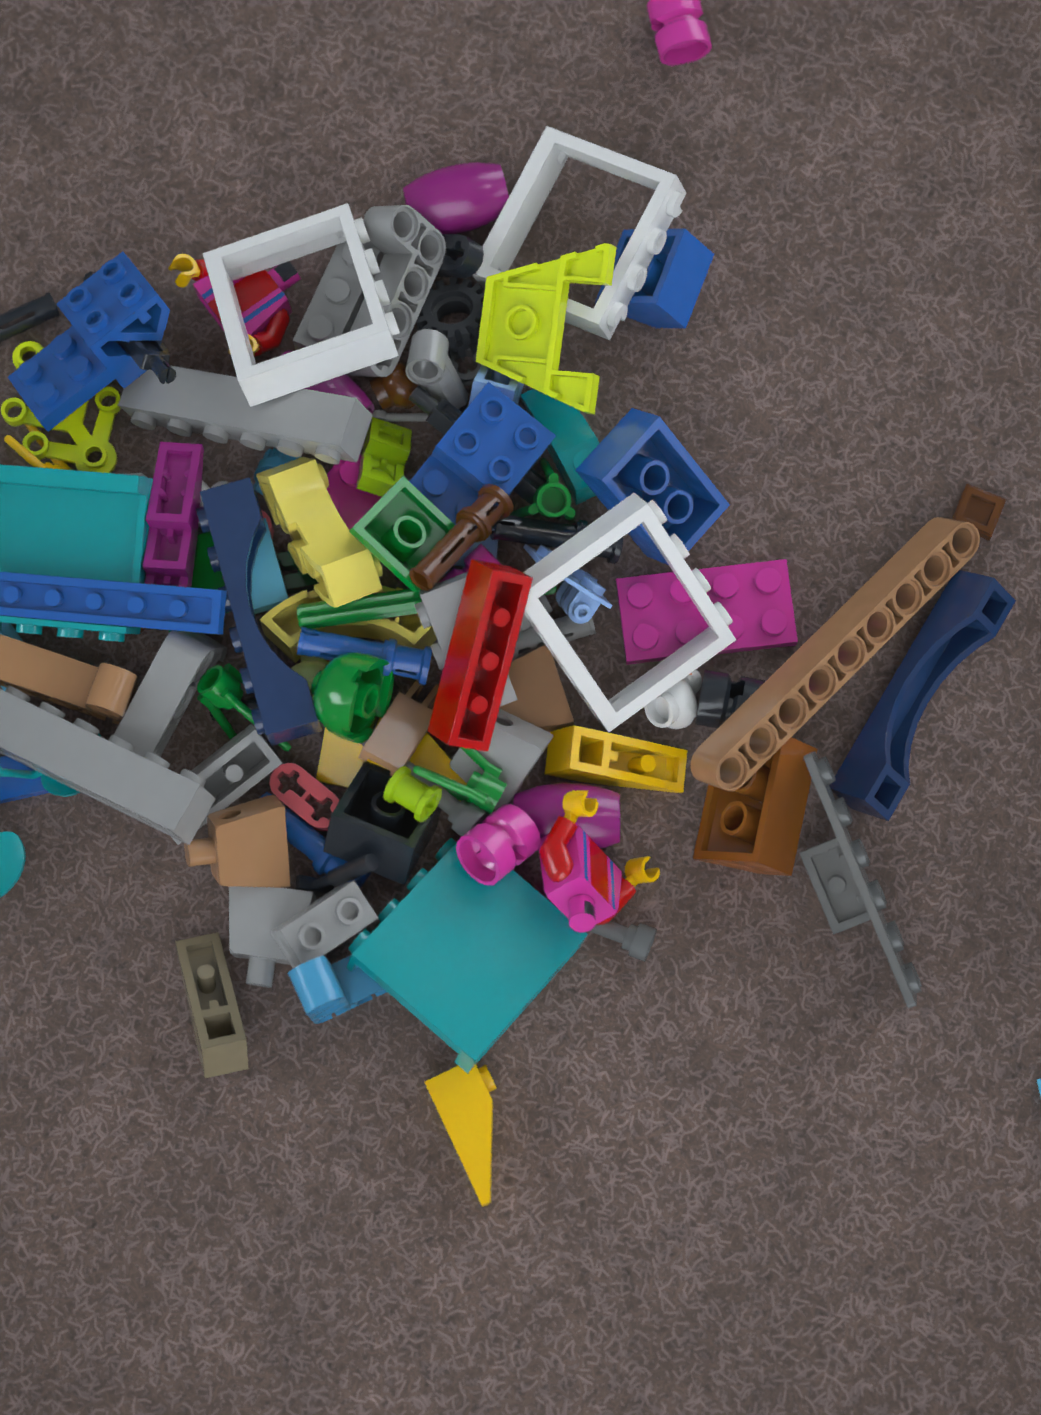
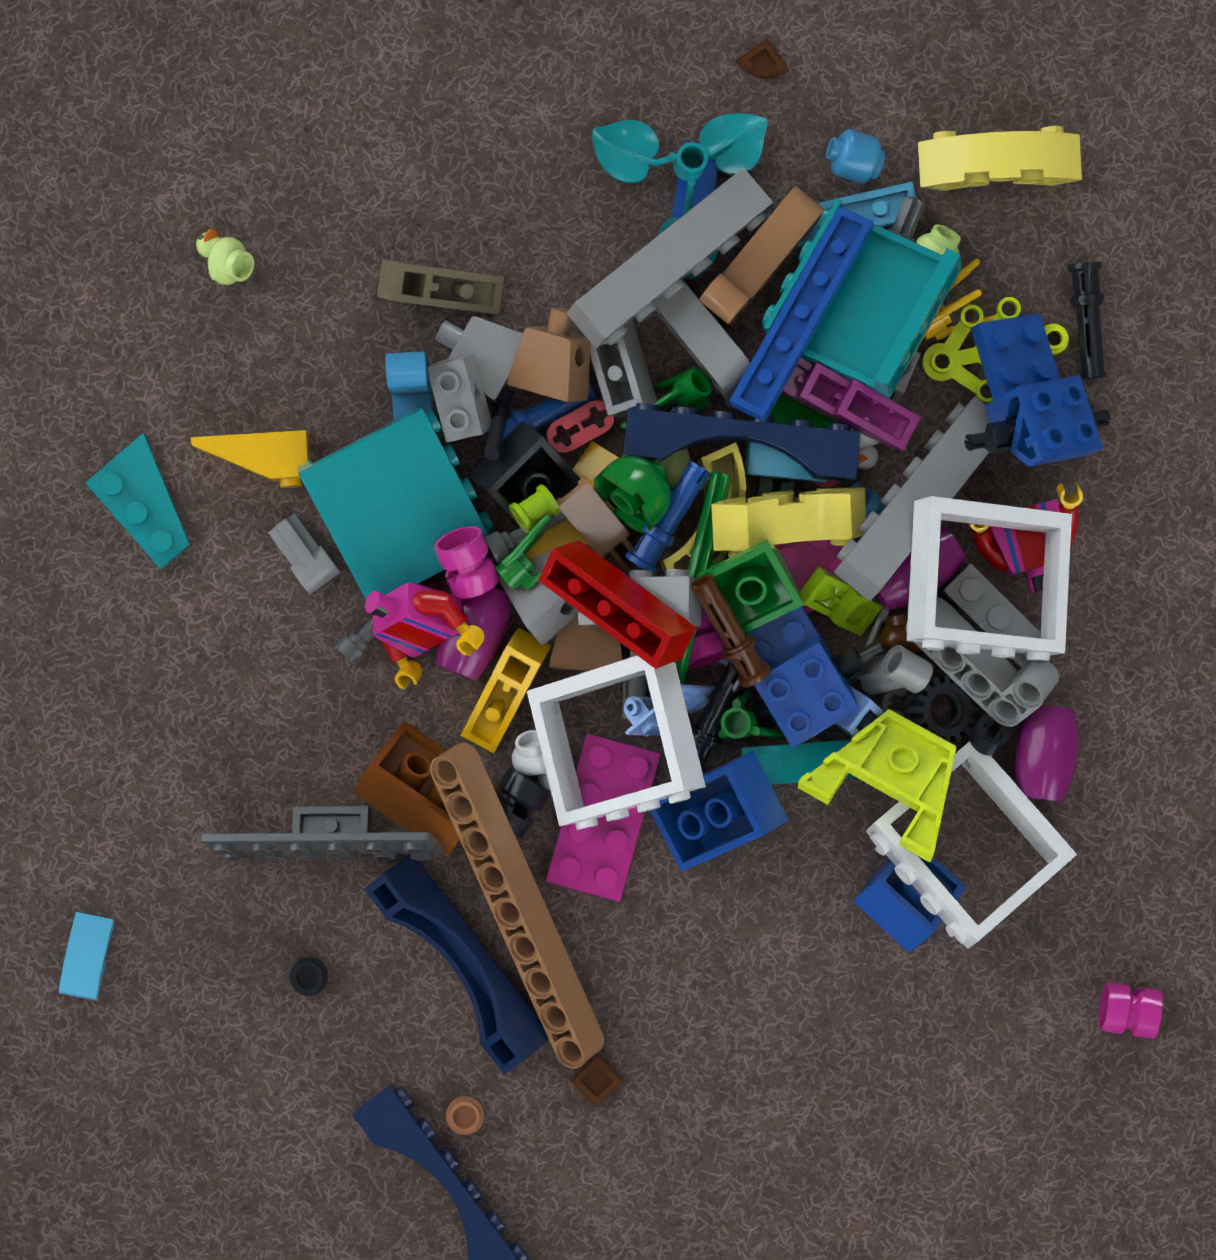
camera: 105 degrees right, 10 degrees up
(268, 1249) = (226, 257): none -> yellowish green animal
(563, 1025) = (308, 560): none -> light grey piece
(574, 1237) = (140, 501): none -> teal wing
(1004, 847) = (308, 976): none -> black plate

